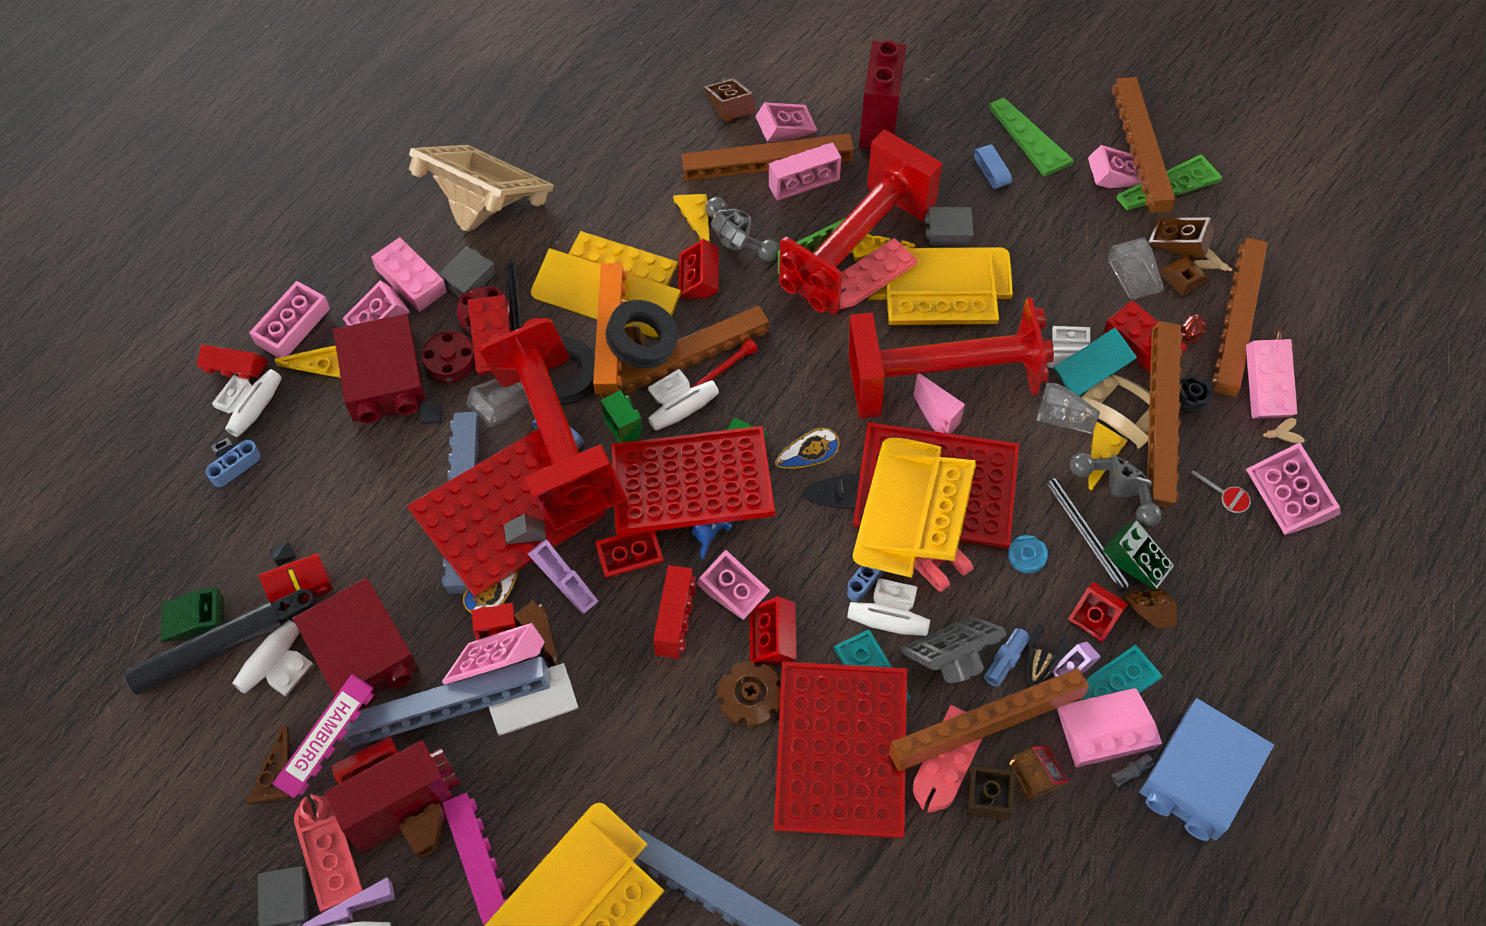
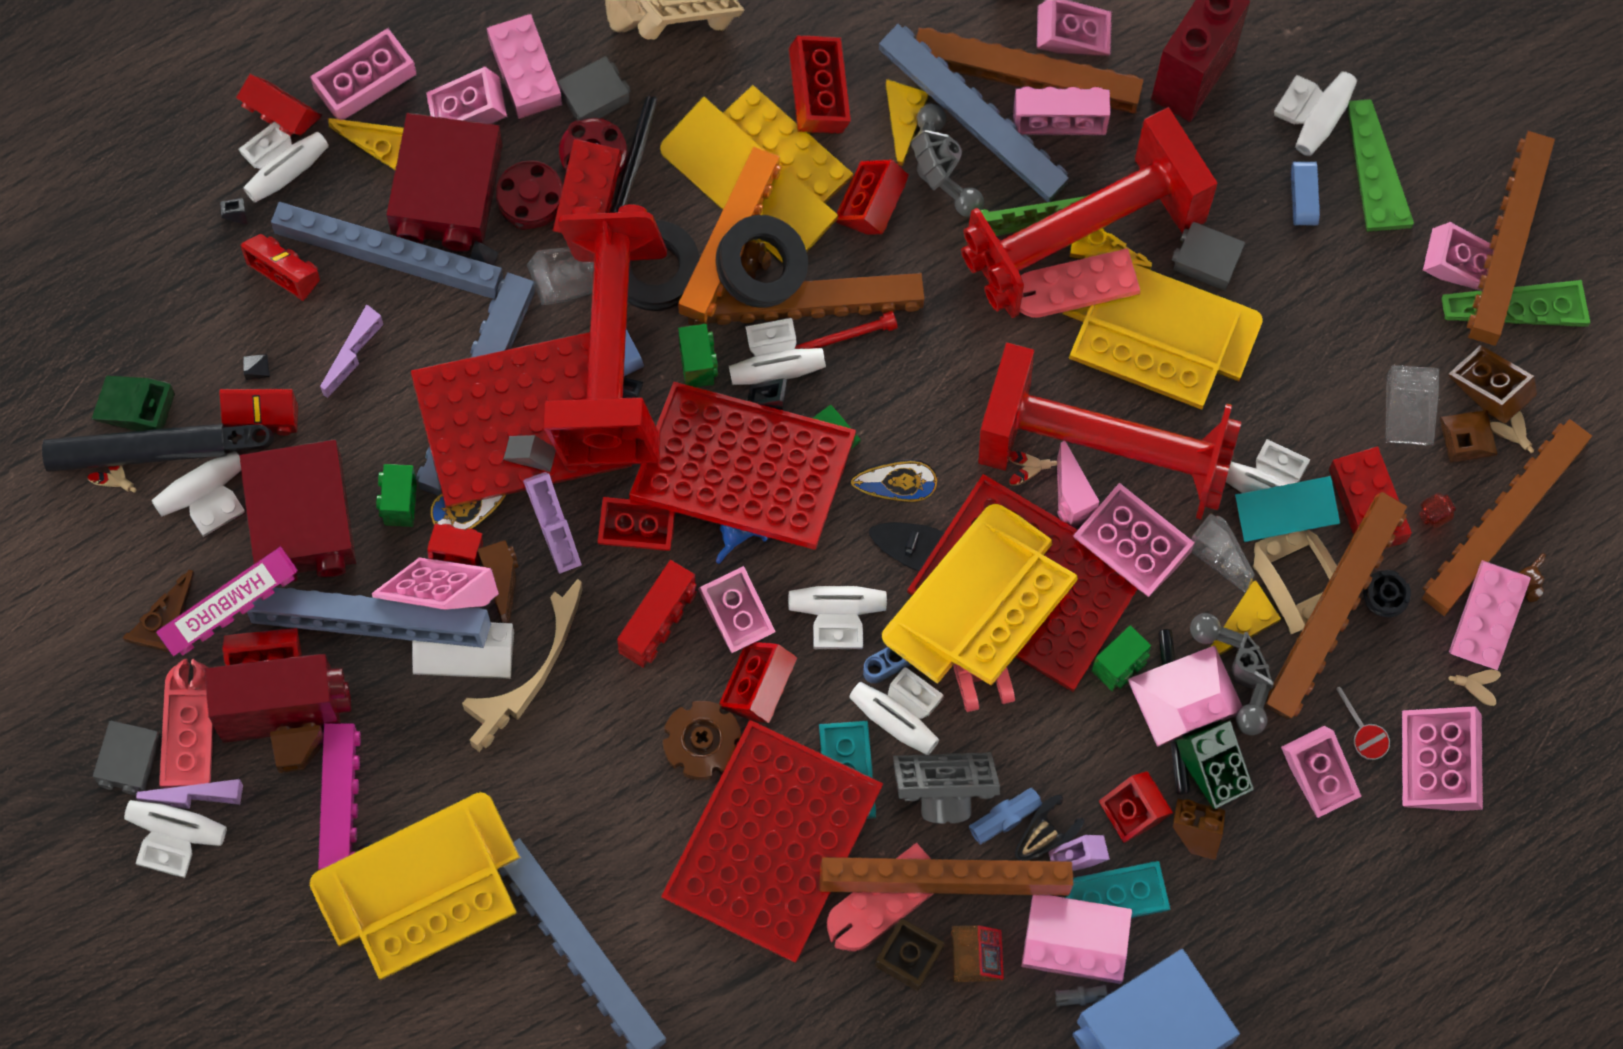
camera: 20 degrees right, 10 degrees up
(197, 679) = (115, 479): none -> tan piece
(242, 460) = (227, 231): medium blue beam -> none
(274, 473) = (280, 265): none -> red slope
(353, 432) = (387, 250): none -> sand blue brick
(353, 521) = (347, 361): none -> lavender slope
(432, 602) = (397, 495): none -> green brick
(578, 737) = (495, 711): none -> tan slope
(628, 212) = (819, 84): none -> red brick
(686, 424) = (769, 393): none -> black slope
(744, 192) = (973, 113): none -> sand blue brick
(809, 559) = (837, 613): none -> white plate
(898, 407) = (1031, 467): none -> piece
(972, 115) = (1315, 109): none -> white plate
(1000, 423) = (1134, 540): none -> bright pink slope
(1027, 554) = (1092, 707): dark azure tile -> none
(1035, 509) = (1121, 659): none -> green brick
(1091, 518) = (1185, 695): none -> bright pink slope
(1214, 531) = (1321, 770): none -> bright pink slope

